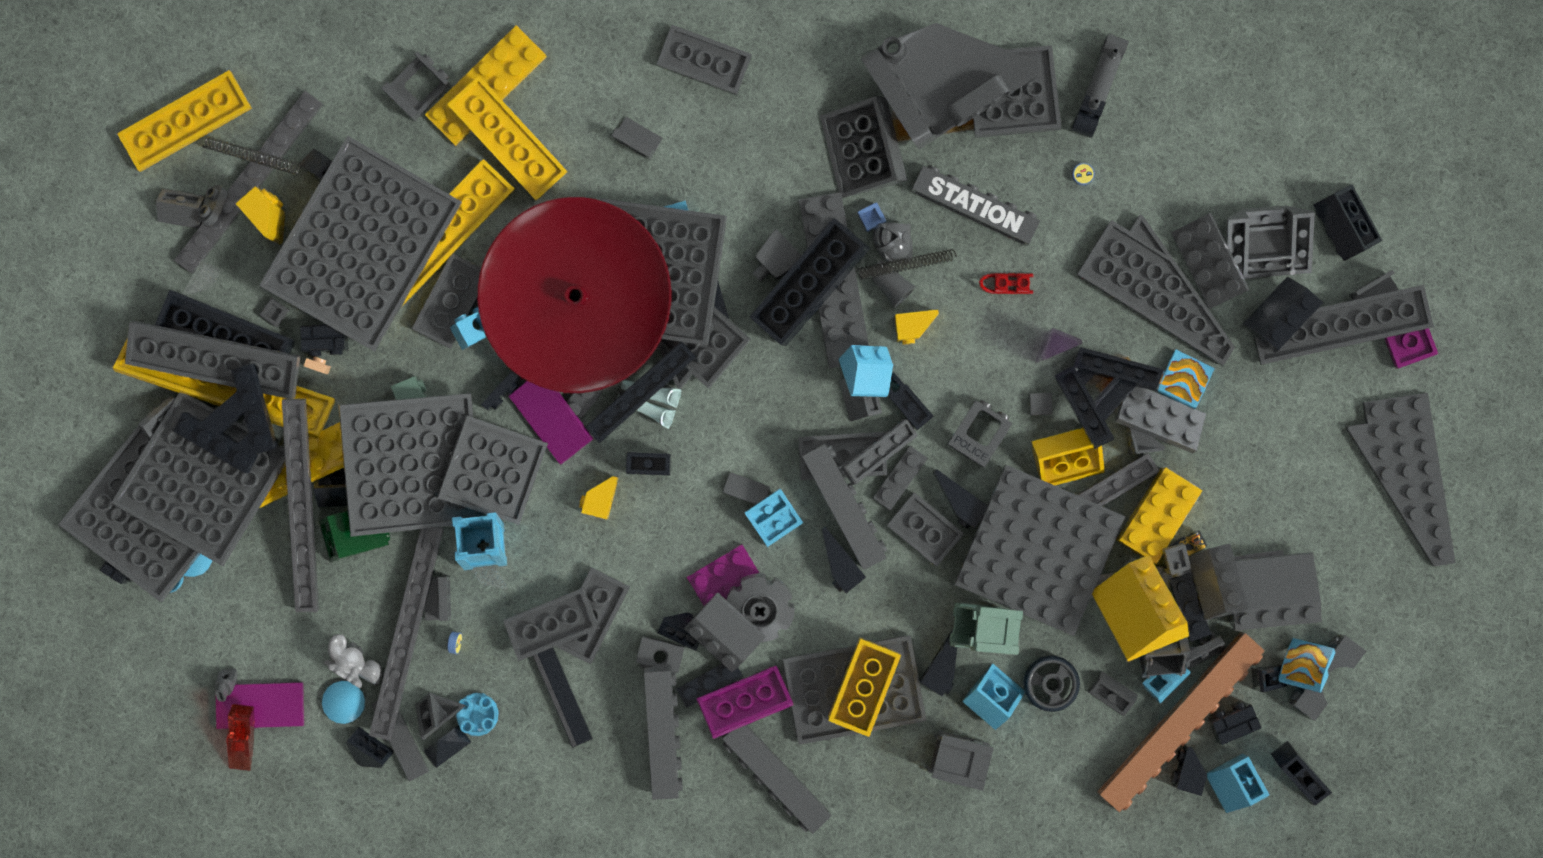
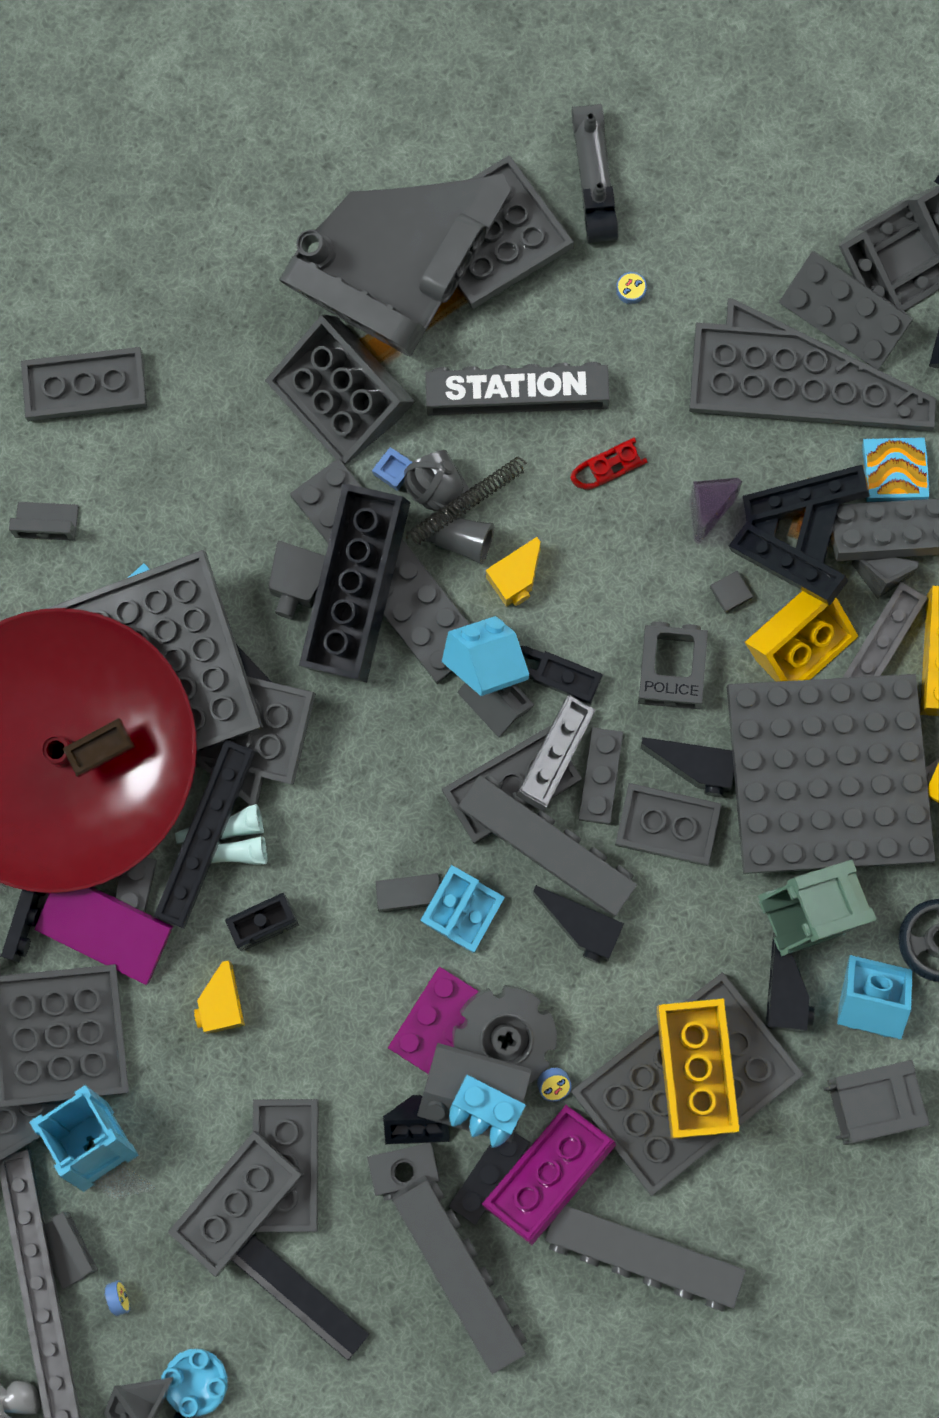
camera: 20 degrees left, 10 degrees down
(601, 308) = (98, 747): none -> dark brown tile
(726, 647) = (486, 1108): none -> medium azure plate
(775, 650) = (554, 1084): none -> tile

